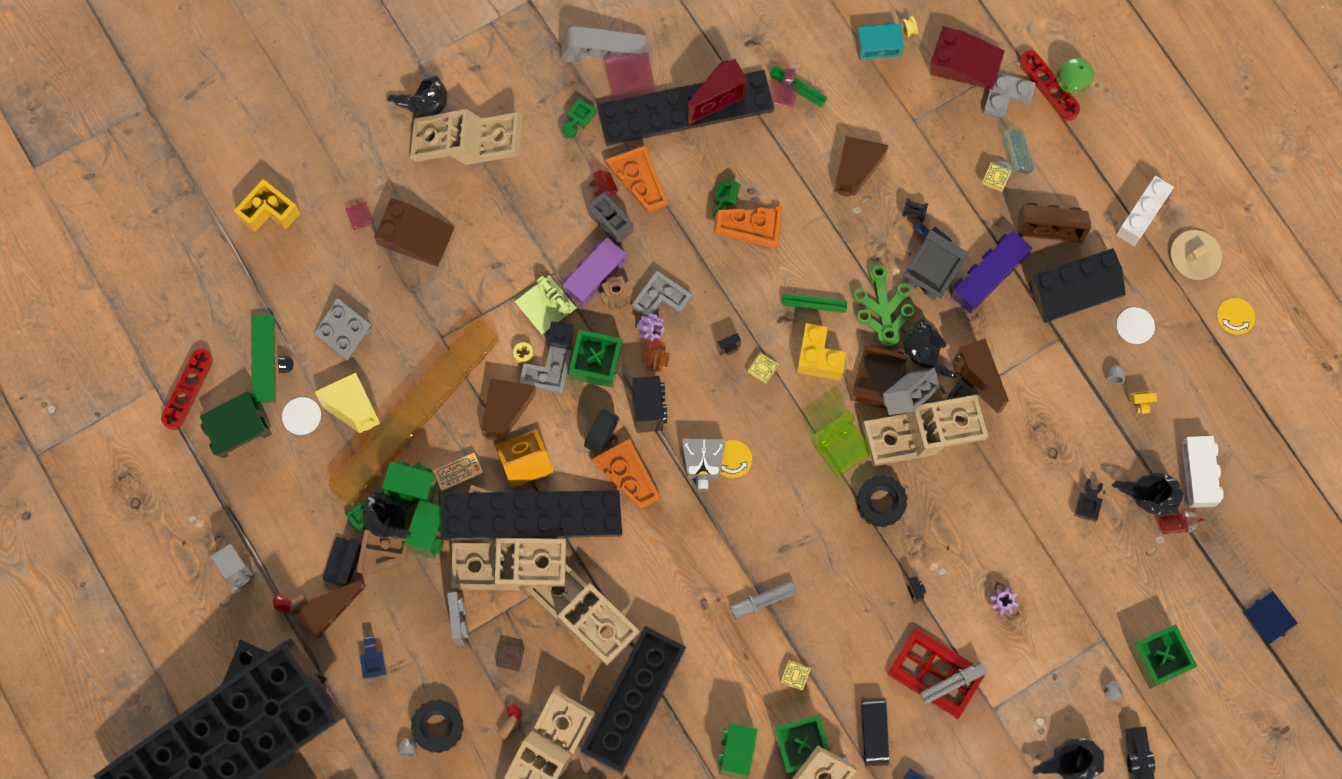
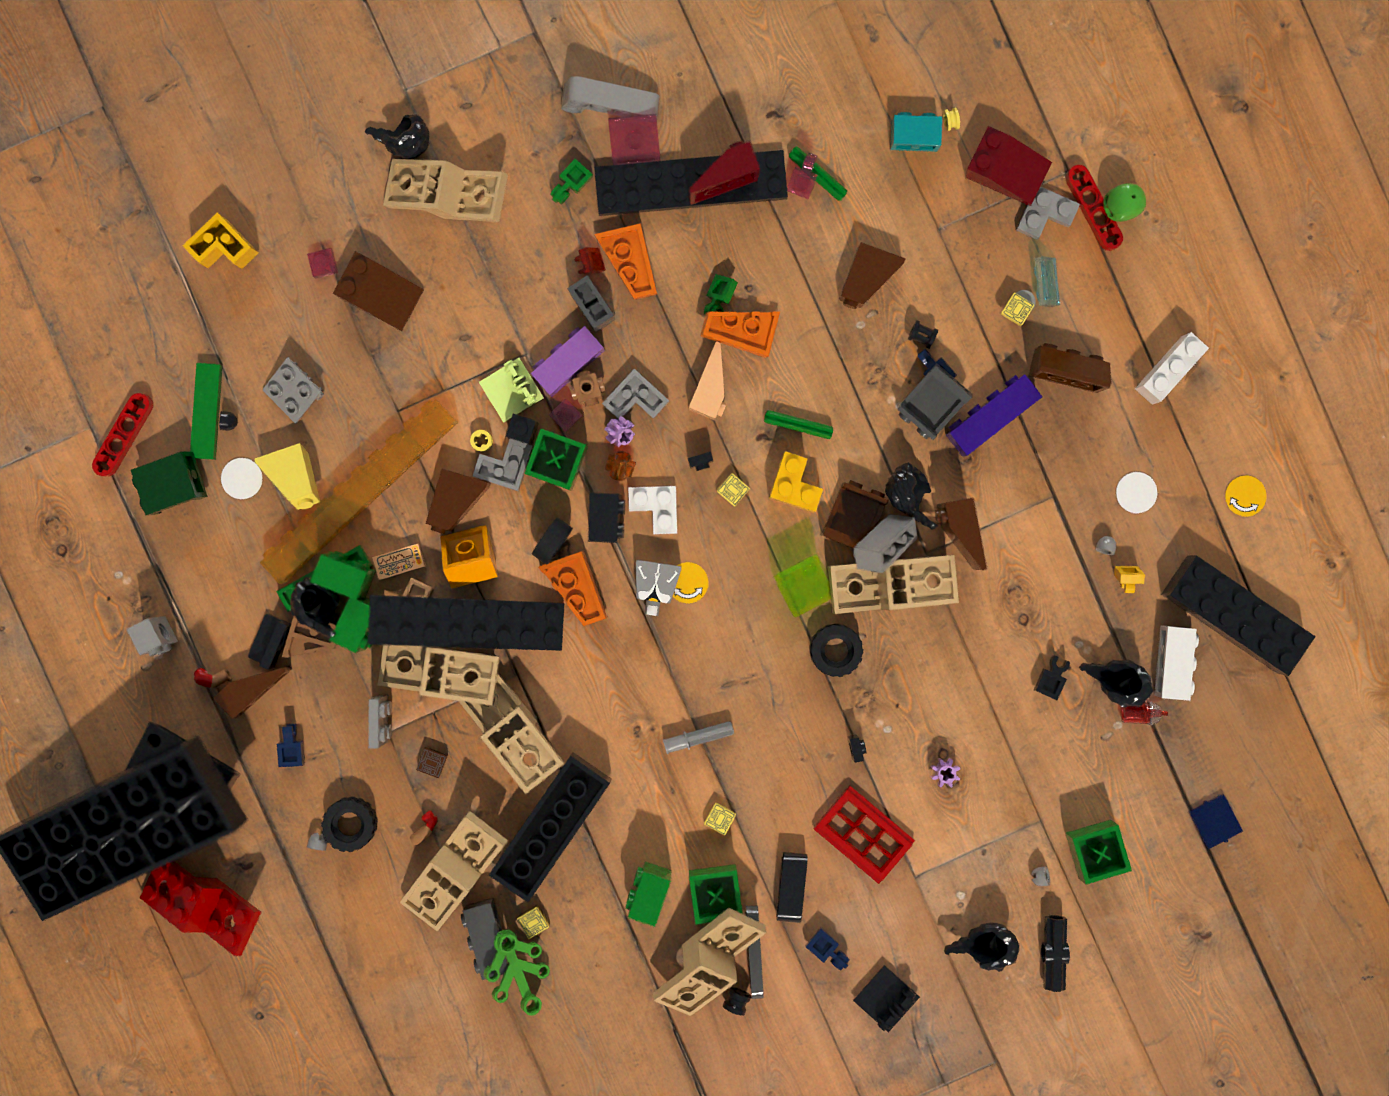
camera: 10 degrees right, 15 degrees up
(598, 320) = (565, 415): none -> clear pink plate
(693, 386) = (660, 501): none -> white plate
(729, 281) = (710, 390): none -> light nougat slope
(884, 309) = (871, 440): bright green plant -> none
(962, 389) = (940, 545): black plate -> none
(963, 677) = (879, 850): light grey axle -> none
(1078, 285) = (1083, 443): black slope -> none
(1196, 255) = (1217, 423): tan shield -> none
(1250, 421) = (1238, 615): none -> black brick

